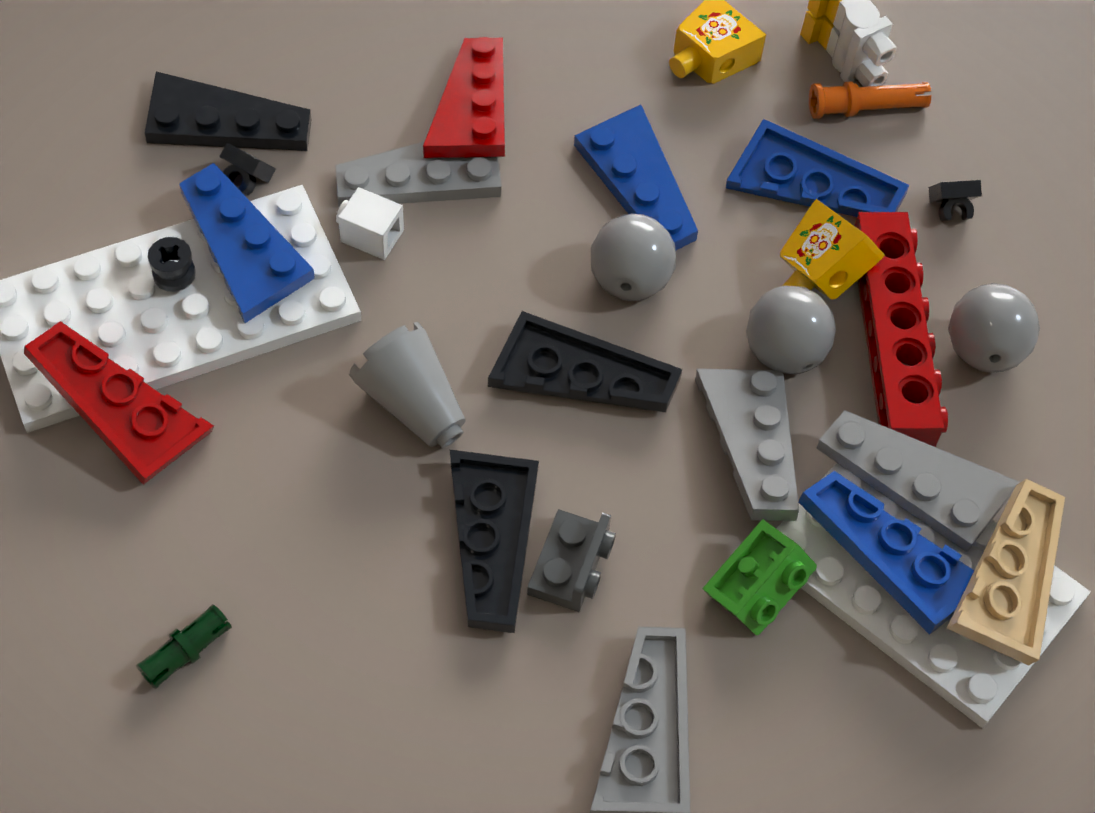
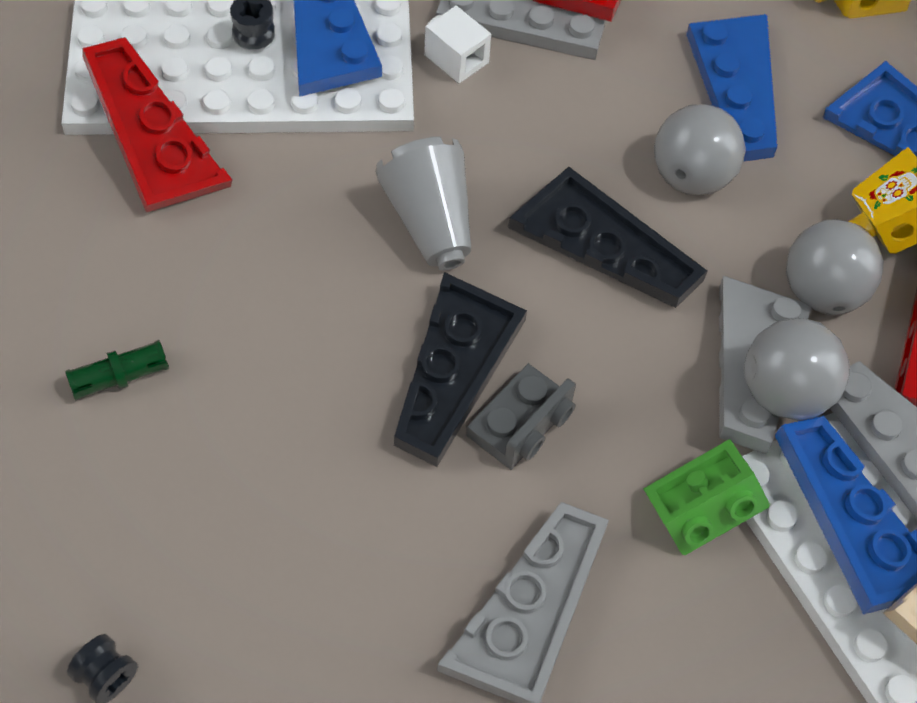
camera: 20 degrees right, 0 degrees up
(798, 438) = (796, 369): none -> light grey piece

